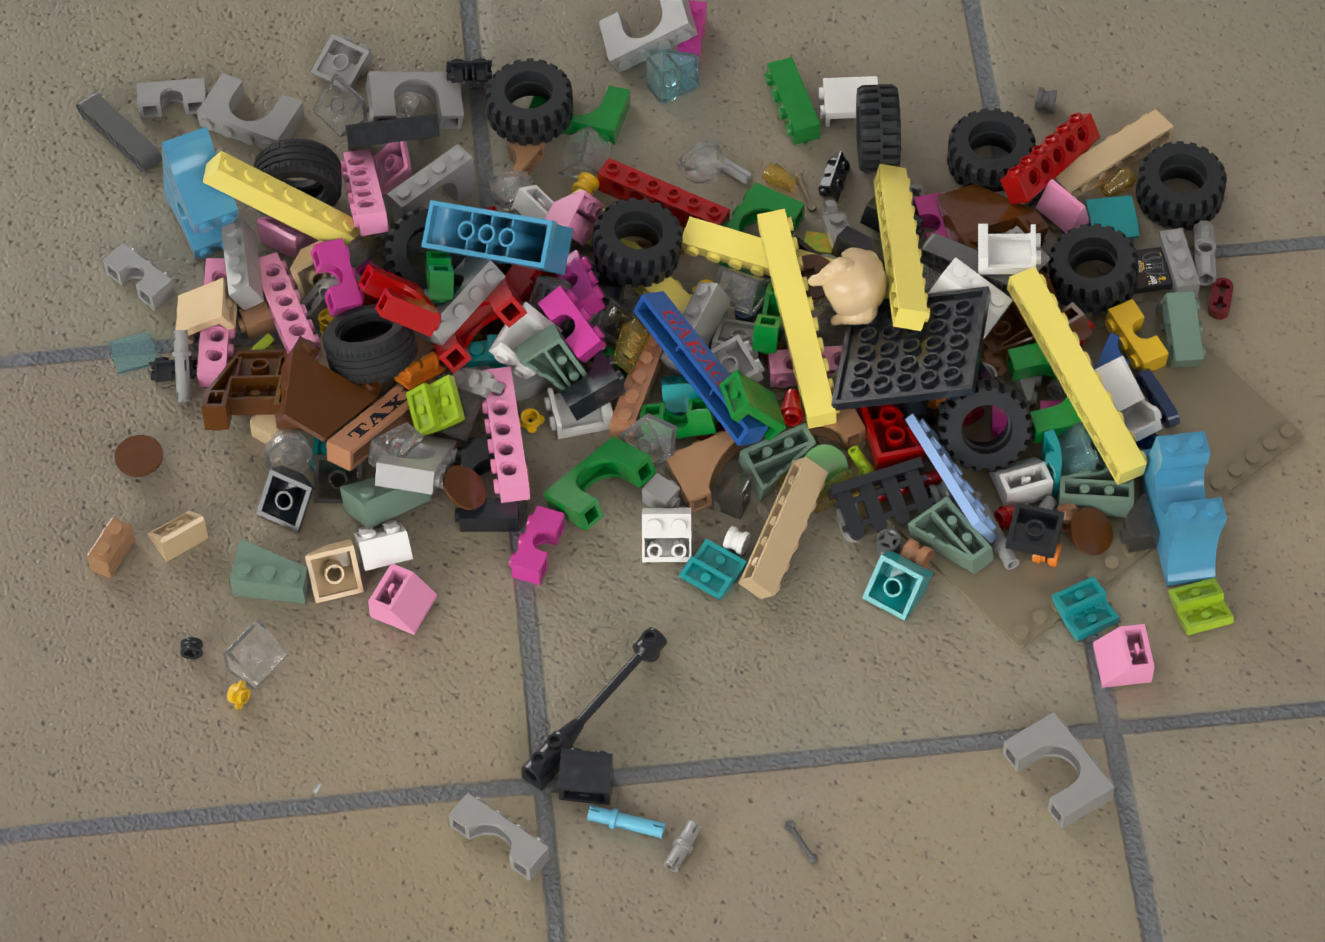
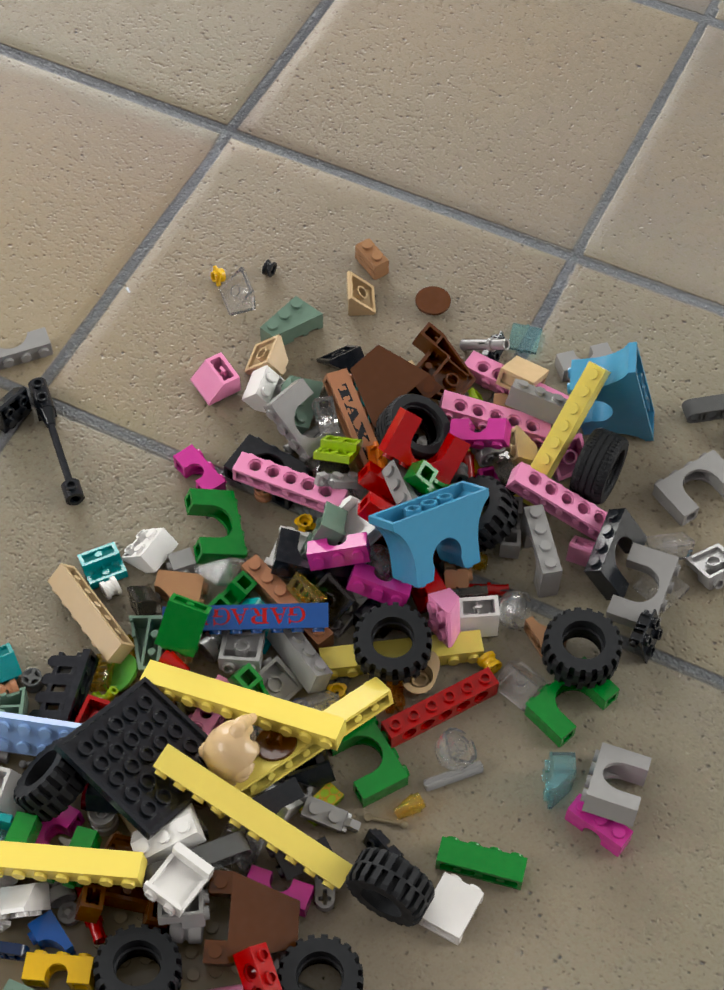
camera: 120 degrees right, 0 degrees up
(464, 487) = (263, 438): reddish brown piece -> none

